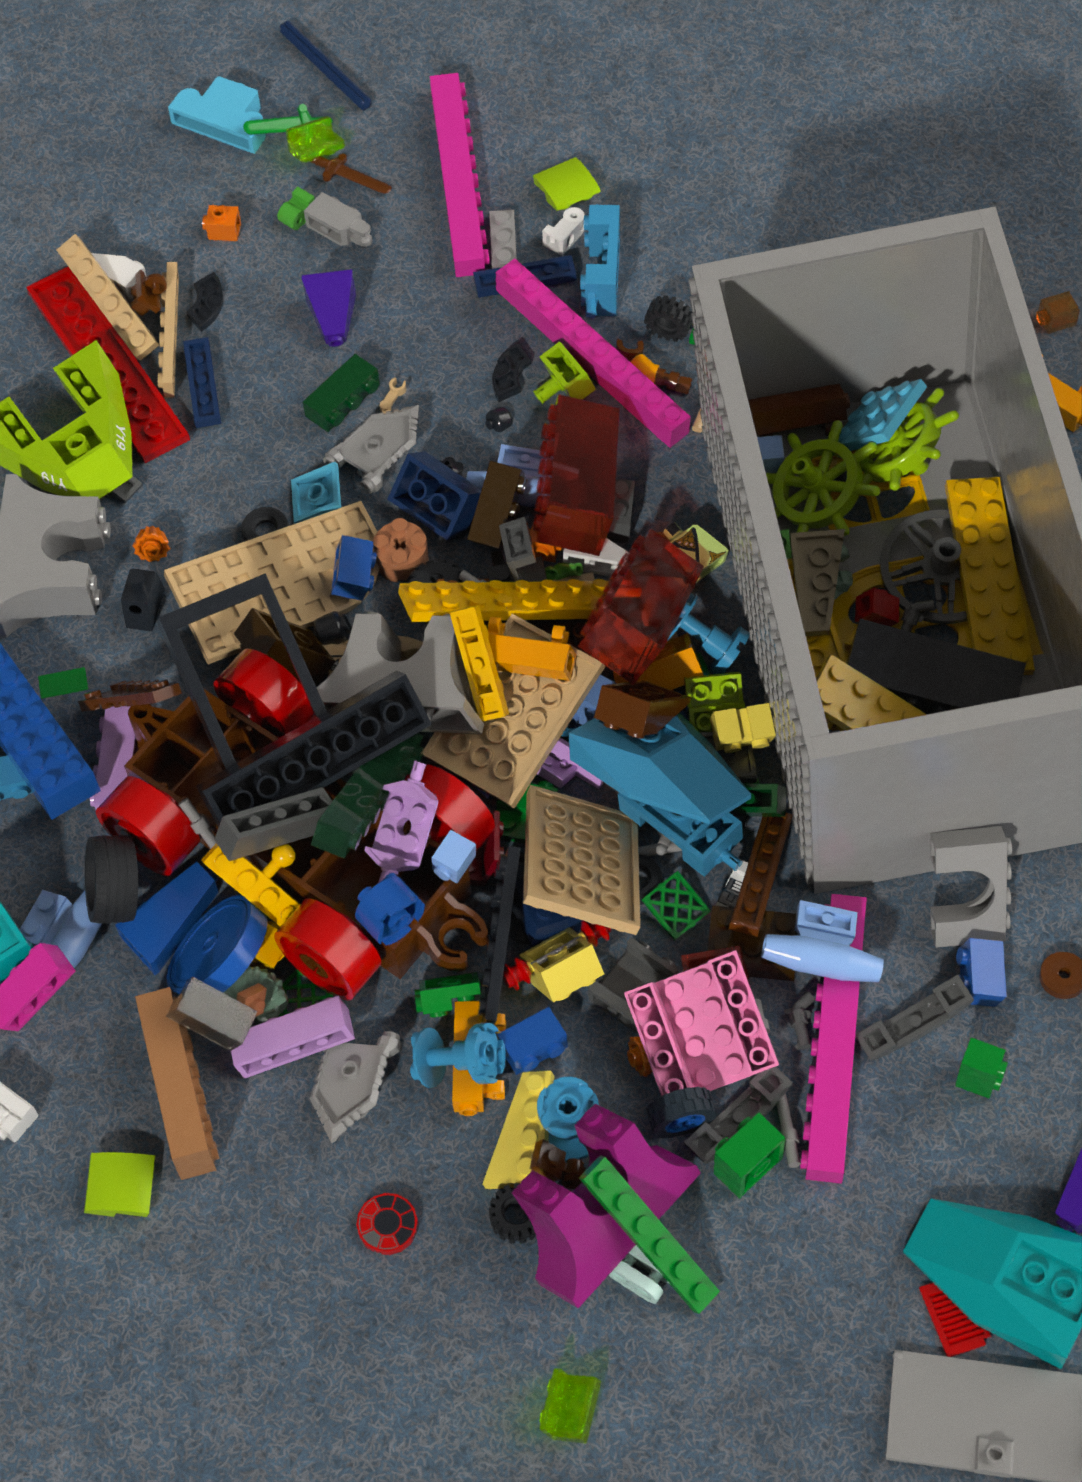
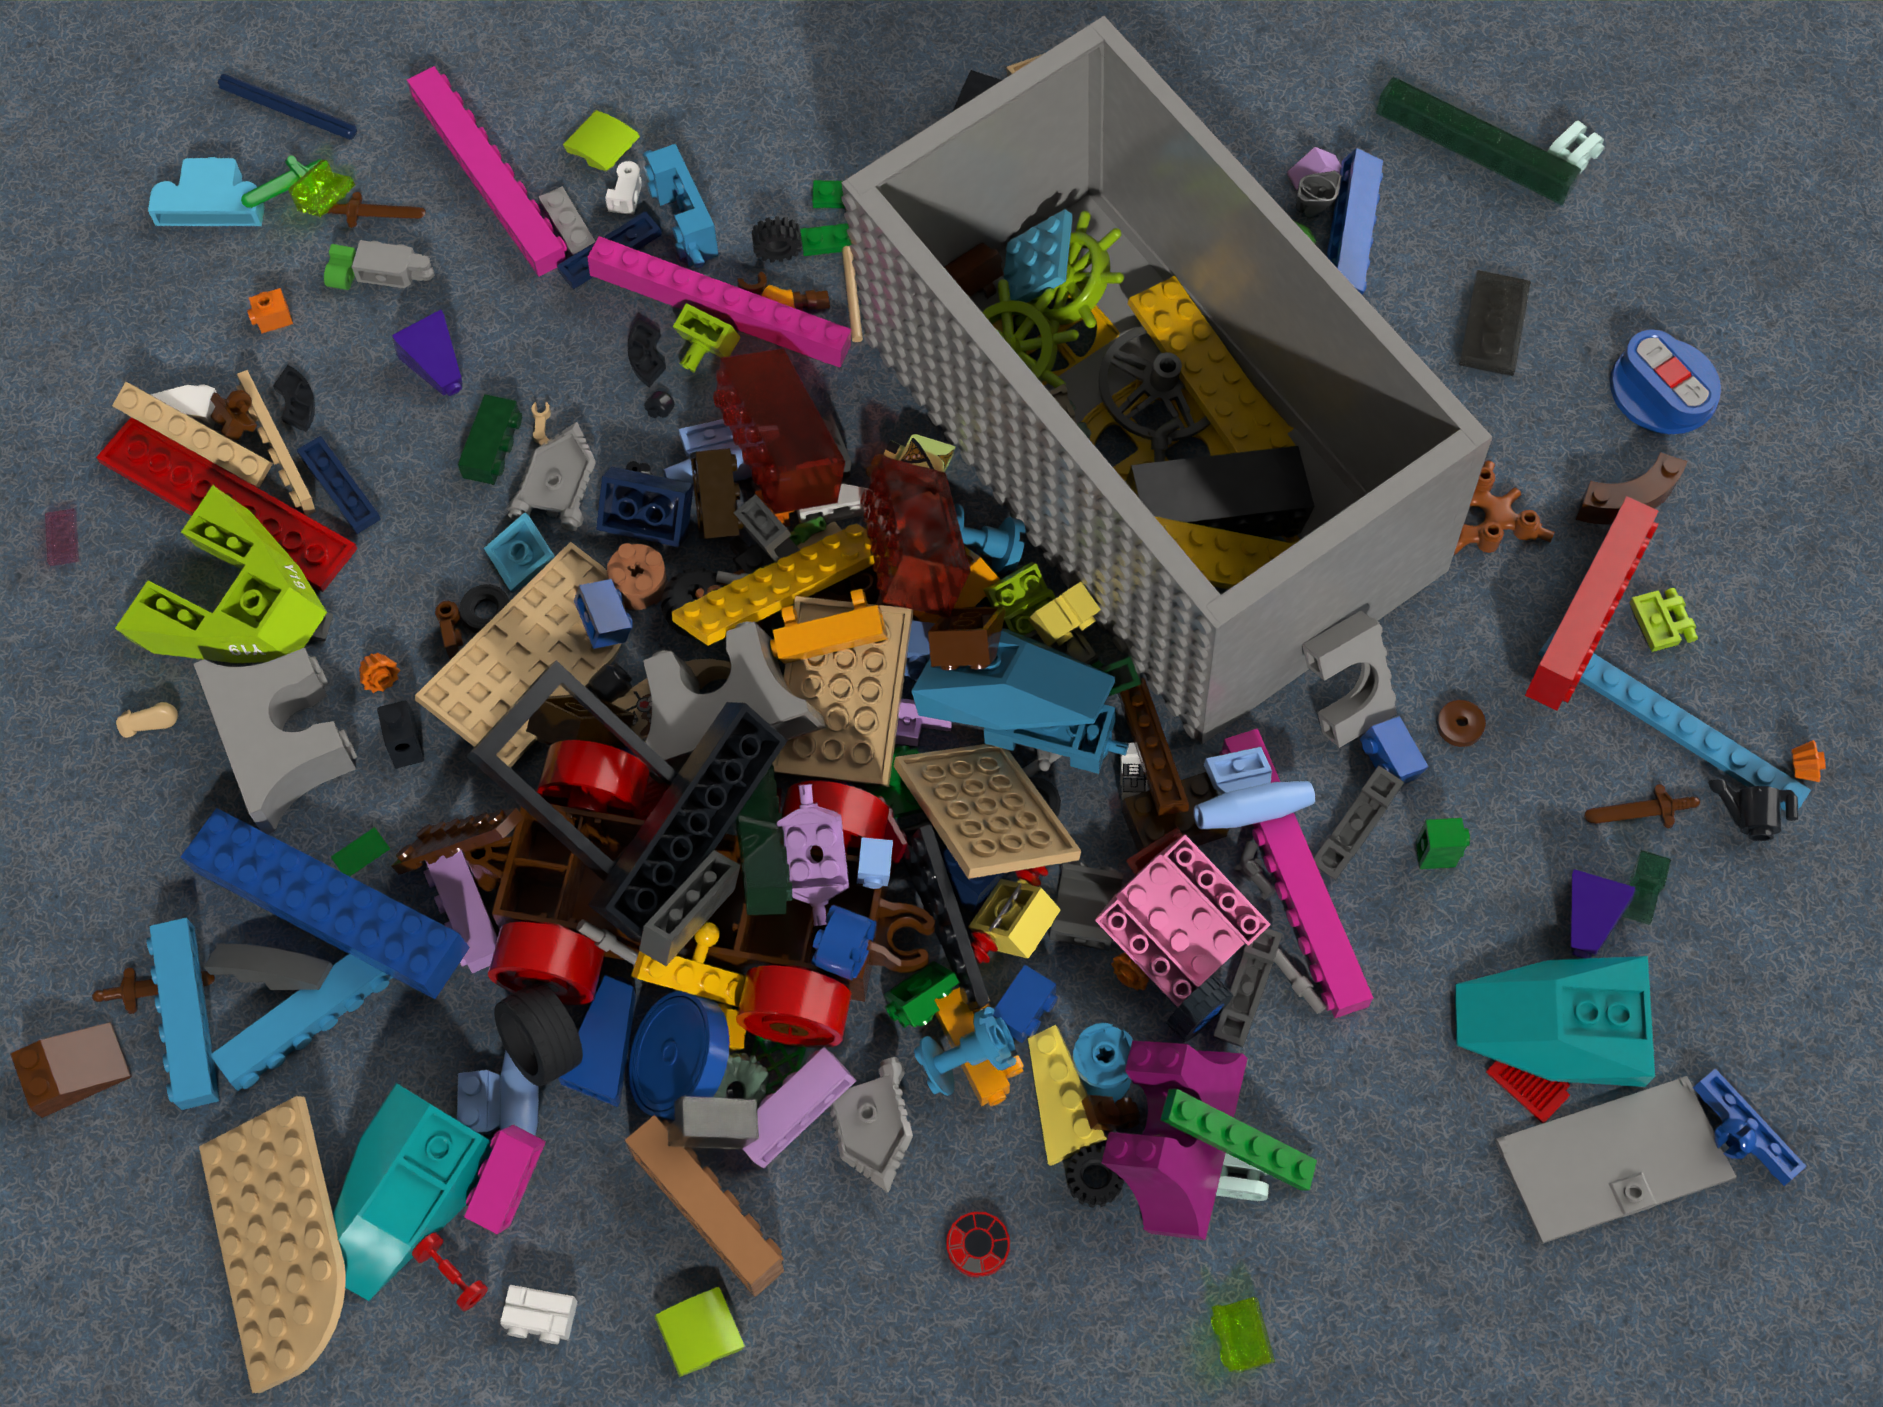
camera: 30 degrees left, 5 degrees up
(231, 522) = (449, 615): none -> reddish brown plate
(254, 998) = (740, 1086): nougat plate -> none
(479, 663) = (795, 659): yellow hinge -> none
(659, 916) = (1090, 794): green window -> none
(748, 1154) = (1281, 1021): green brick -> none
(878, 607) = (1125, 448): red brick -> none

